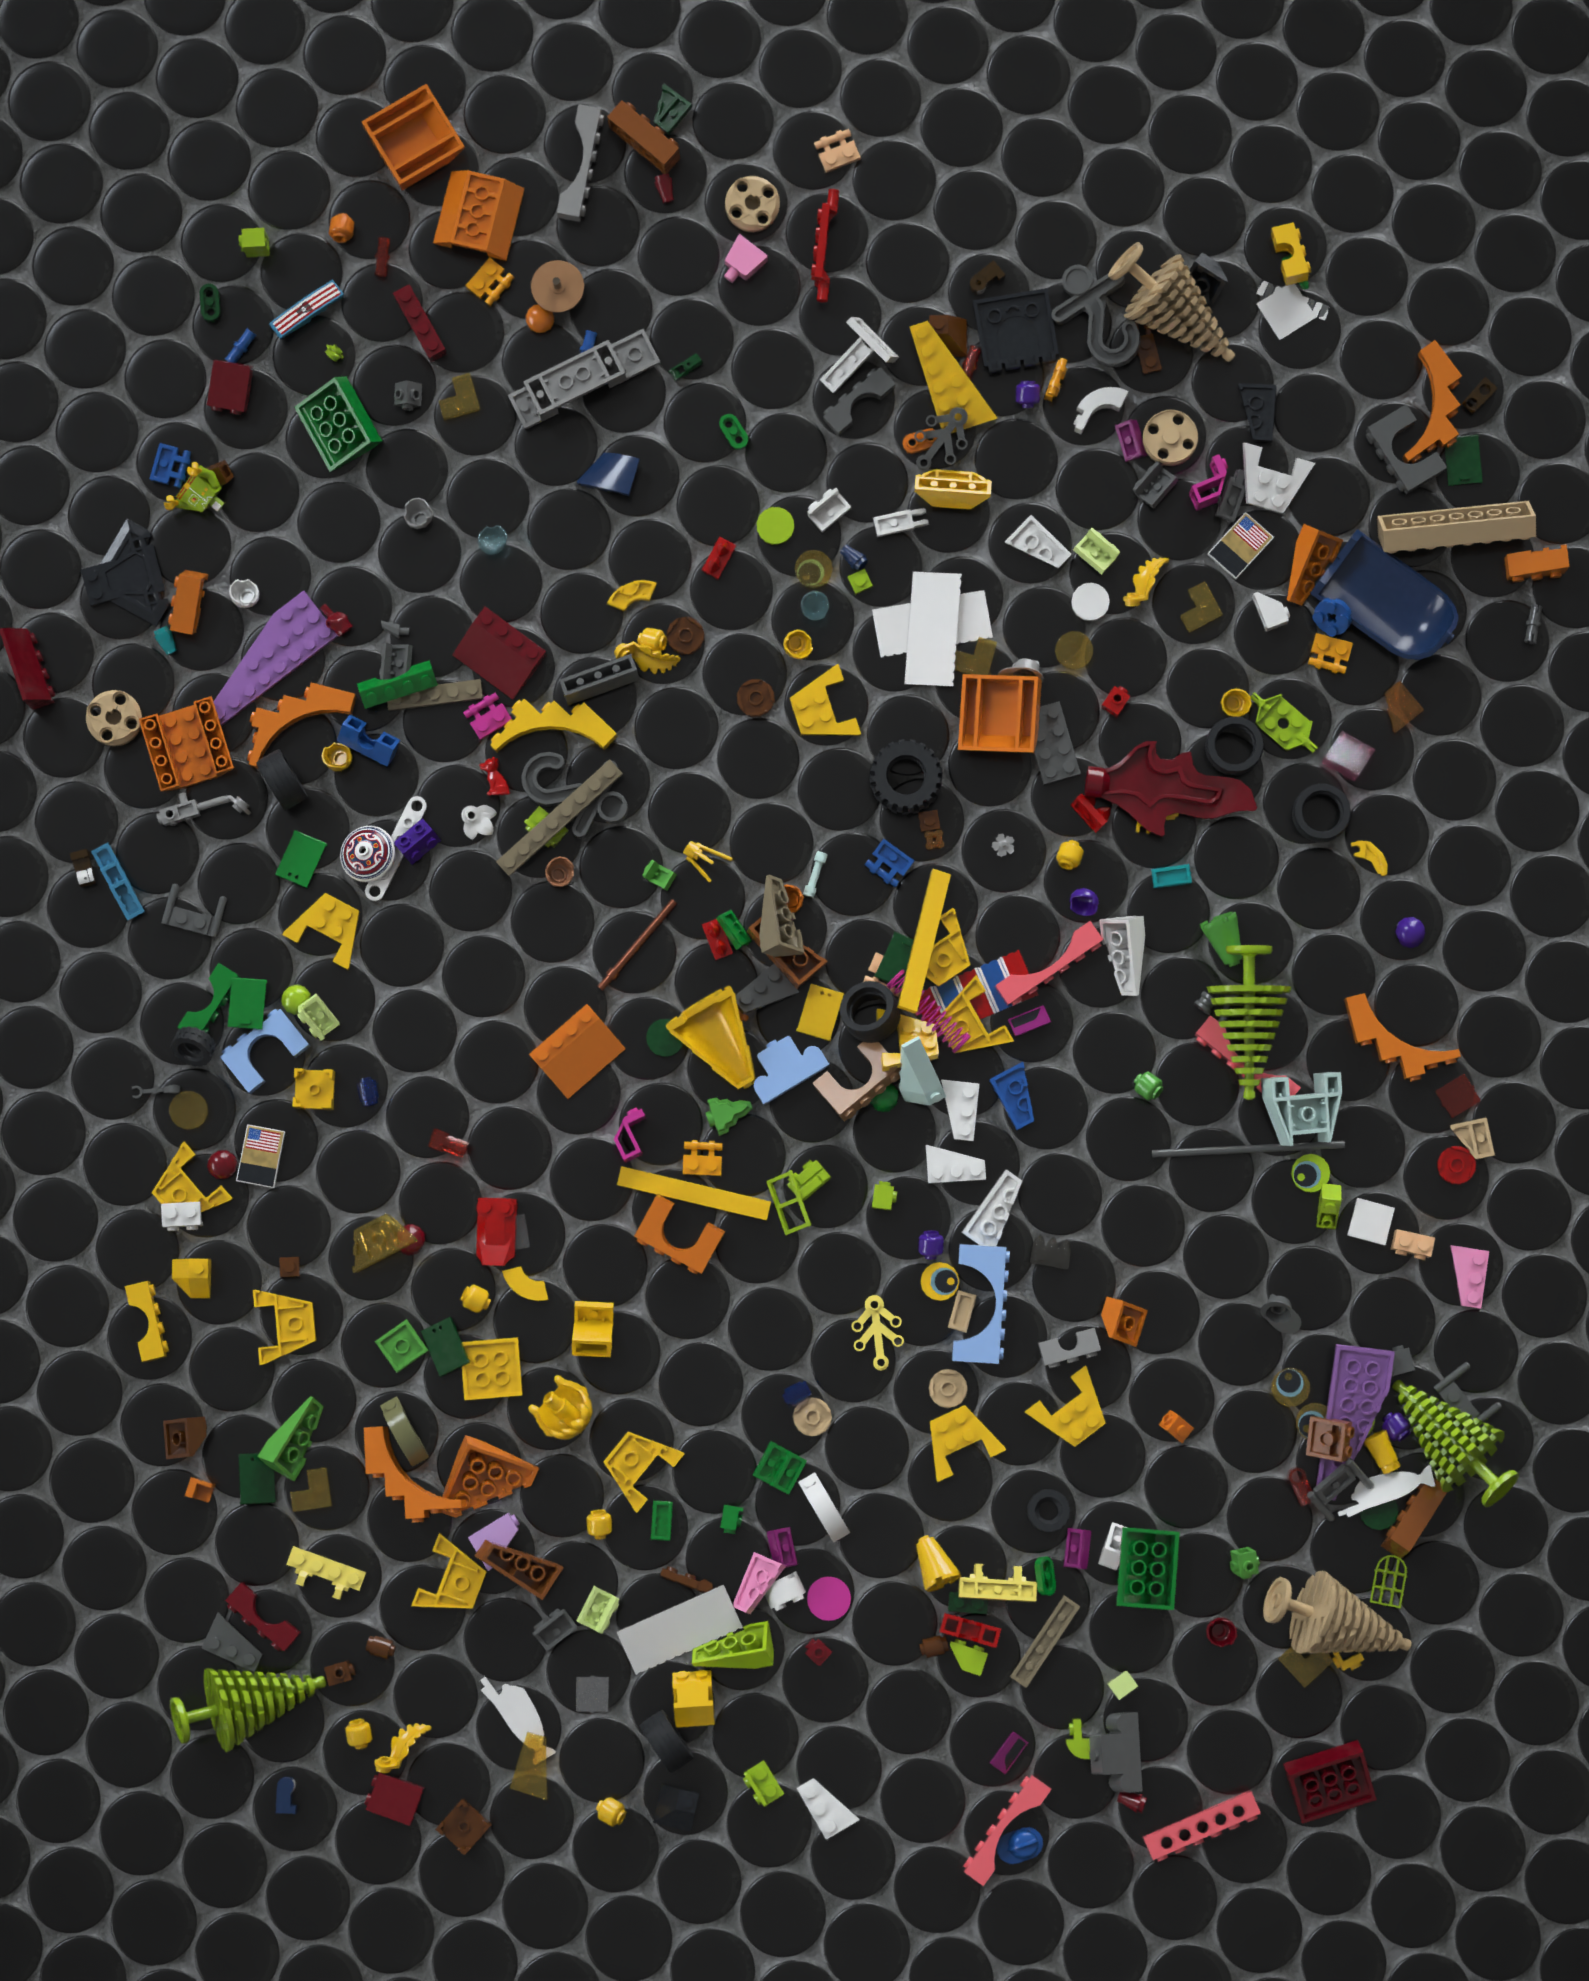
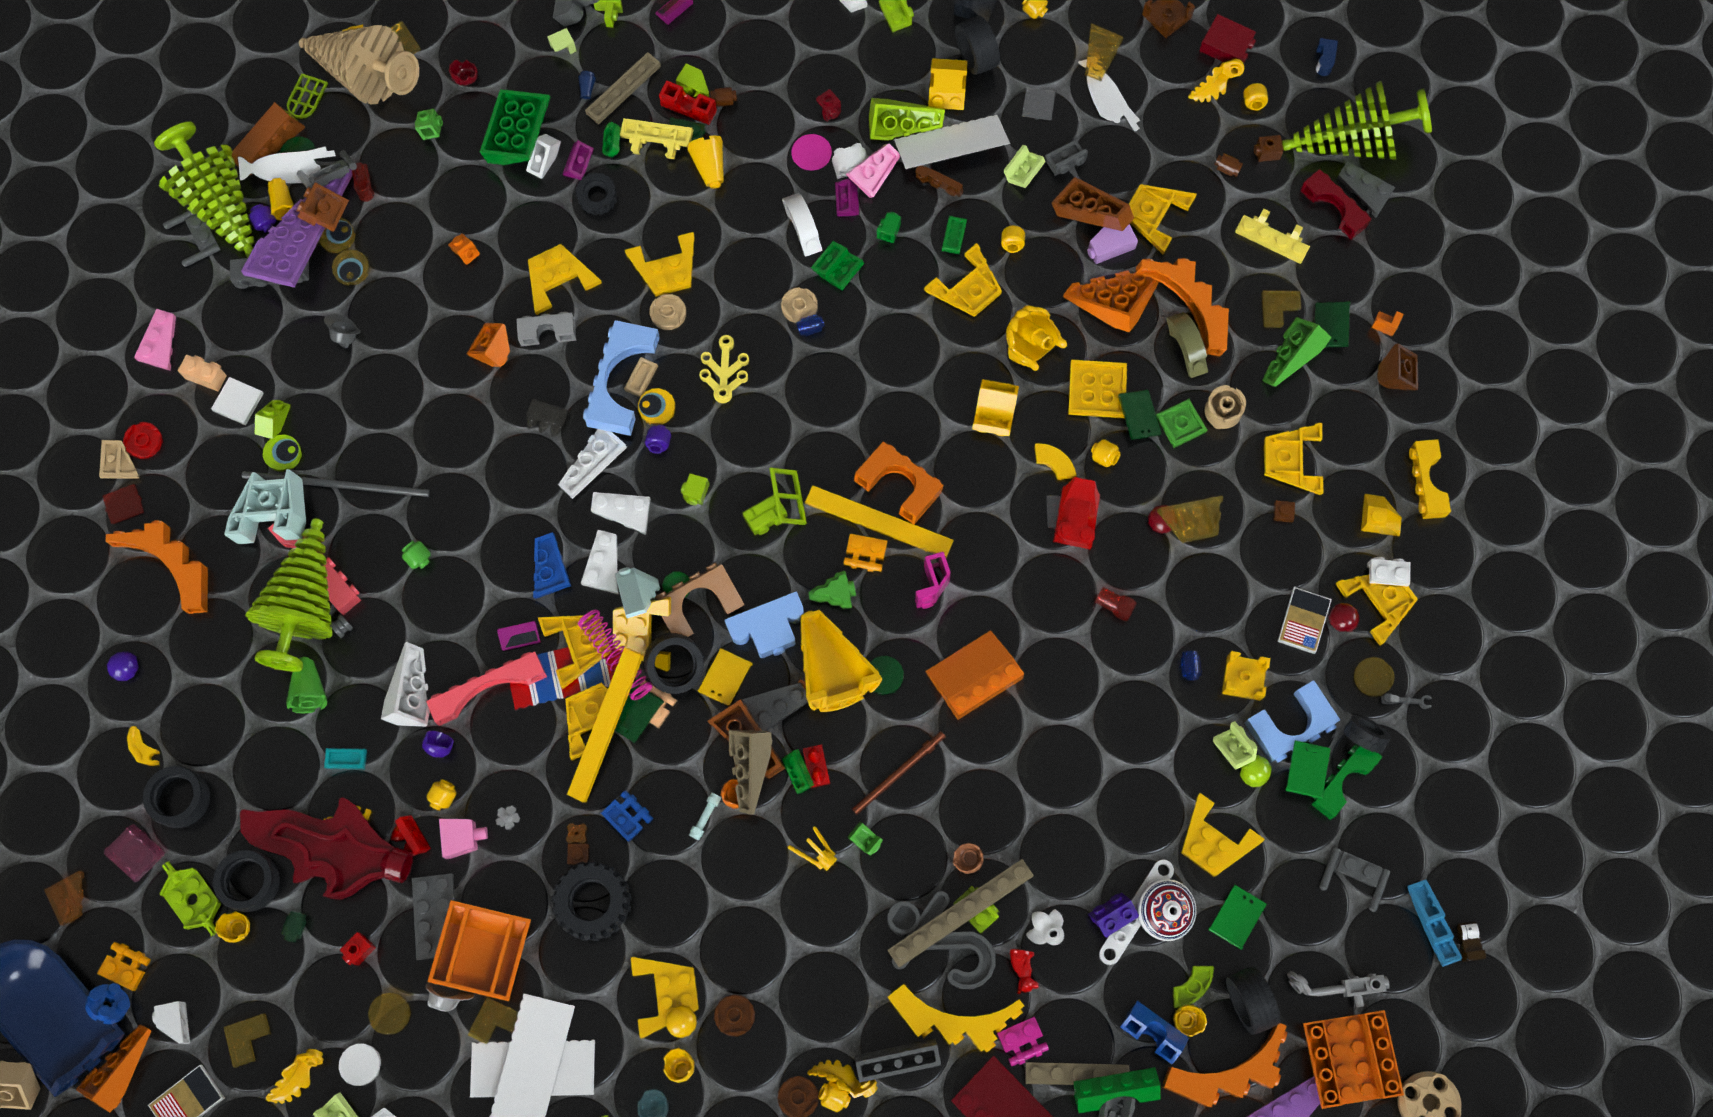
camera: 175 degrees left, 10 degrees down
(334, 789) = (1194, 987): none -> lime tile
(348, 1363) = (1225, 407): none -> tan brick
(802, 683) = (681, 1021): none -> yellow hair
(1043, 818) = (460, 837): none -> bright pink torso
(1085, 1639) = (586, 84): none -> dark blue cone
(1180, 712) = (294, 926): none -> clear green brick

